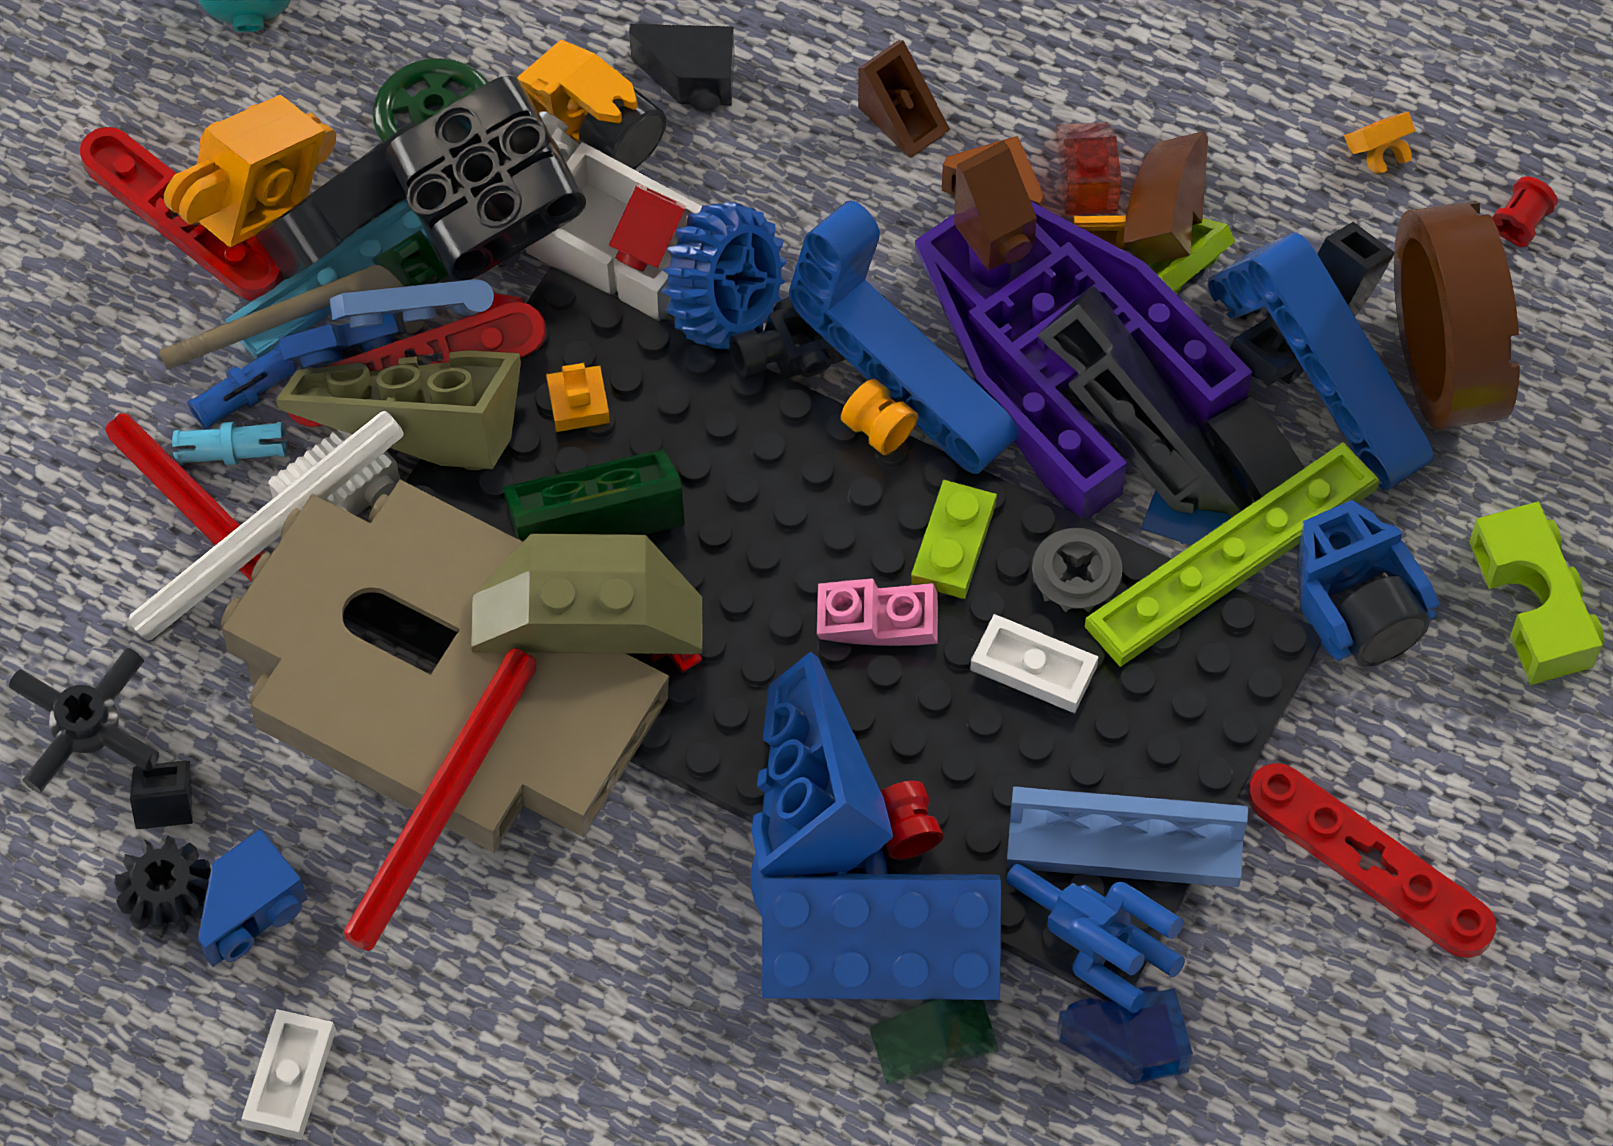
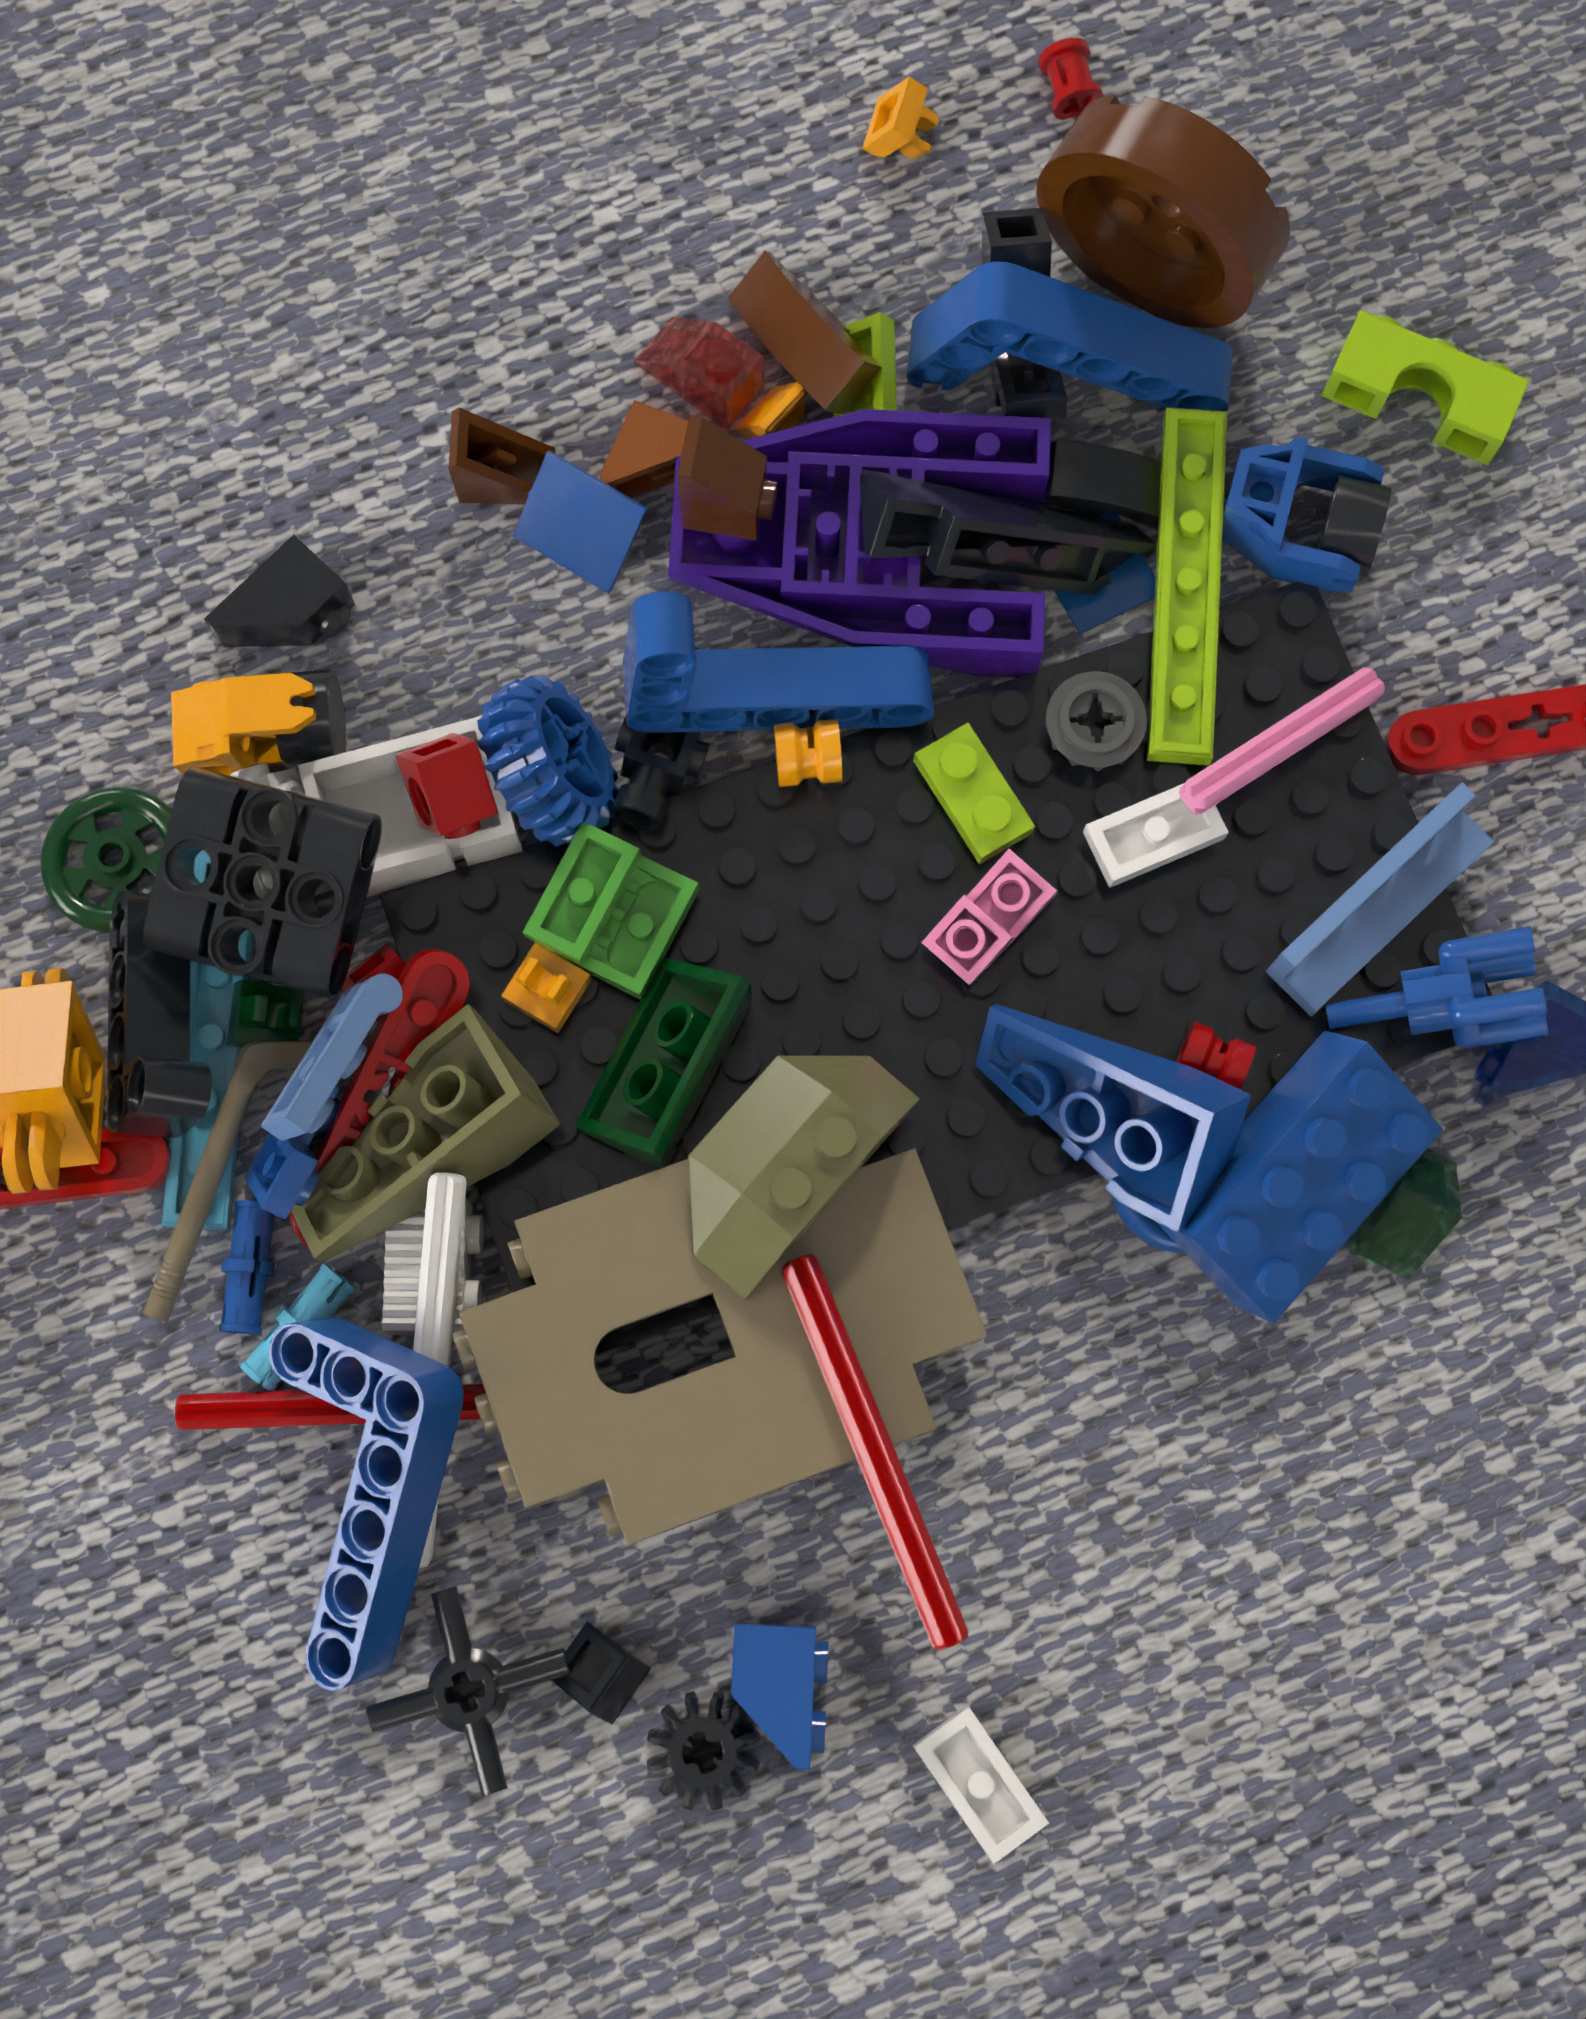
camera: 50 degrees left, 15 degrees up
(161, 562) = (393, 1489): none -> blue beam
(663, 391) = (611, 910): none -> bright green slope
(909, 176) = (579, 522): none -> blue window
(1175, 687) = (1281, 740): none -> bright pink axle

